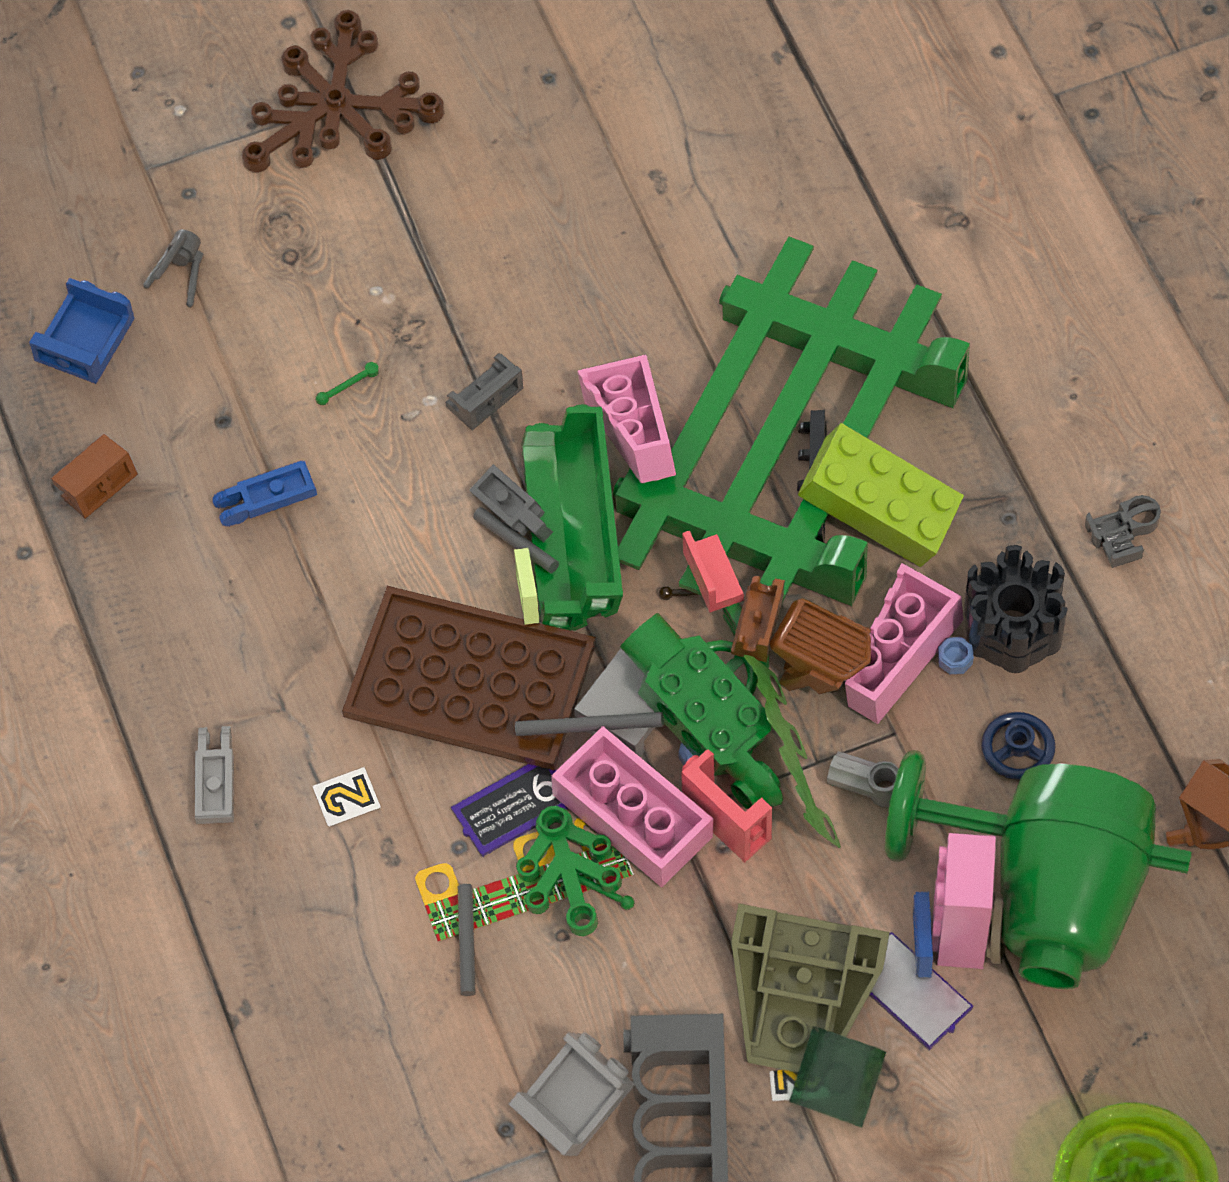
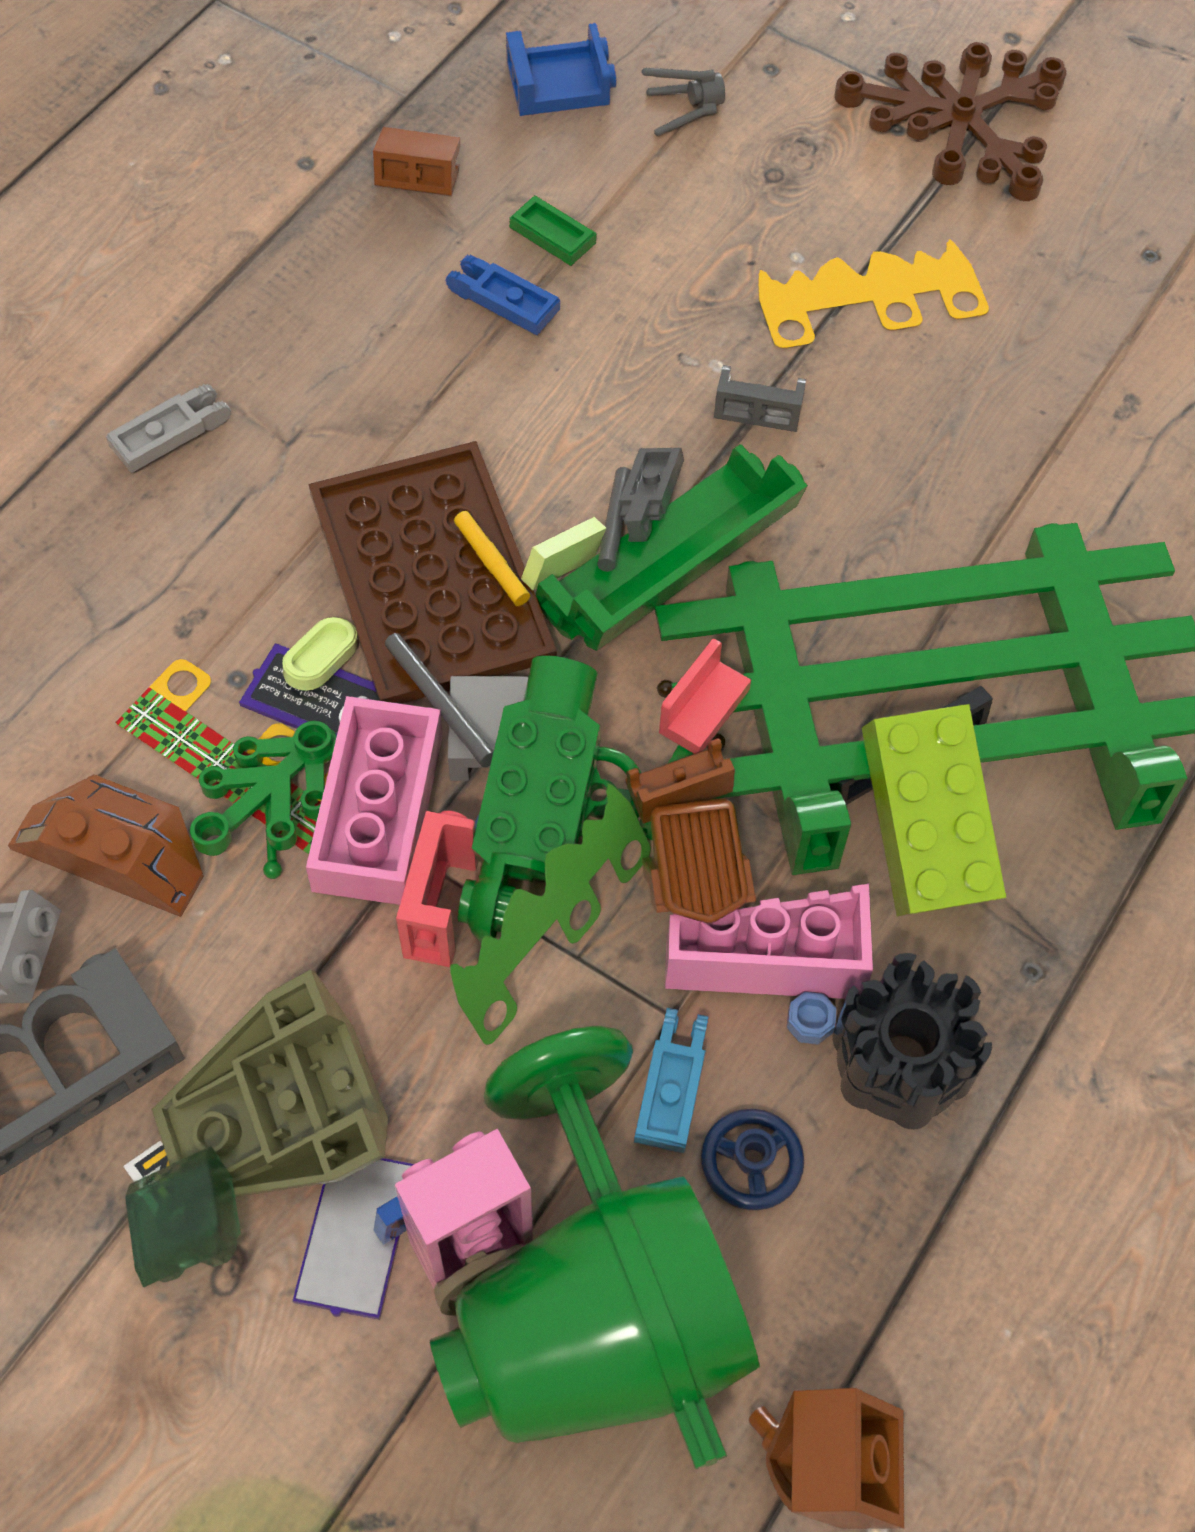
camera: 50 degrees right, 0 degrees up
(229, 428) = (552, 230): none -> green tile
(346, 796) = (227, 549): sticker -> none
(371, 370) = (708, 300): green hinge -> none
(445, 251) = (886, 282): none -> yellow piece
(466, 940) = (130, 743): dark grey bar -> none
(484, 782) = (319, 653): none -> yellowish green tile
(496, 631) = (492, 558): none -> yellow piece
(535, 986) = (115, 841): none -> dark orange wedge
(631, 415) = (829, 526): bright pink wedge -> none
(862, 777) = (581, 997): light grey piece -> none
(943, 757) = (671, 1087): none -> dark azure hinge
(1118, 537) = (1107, 1098): dark grey piece -> none

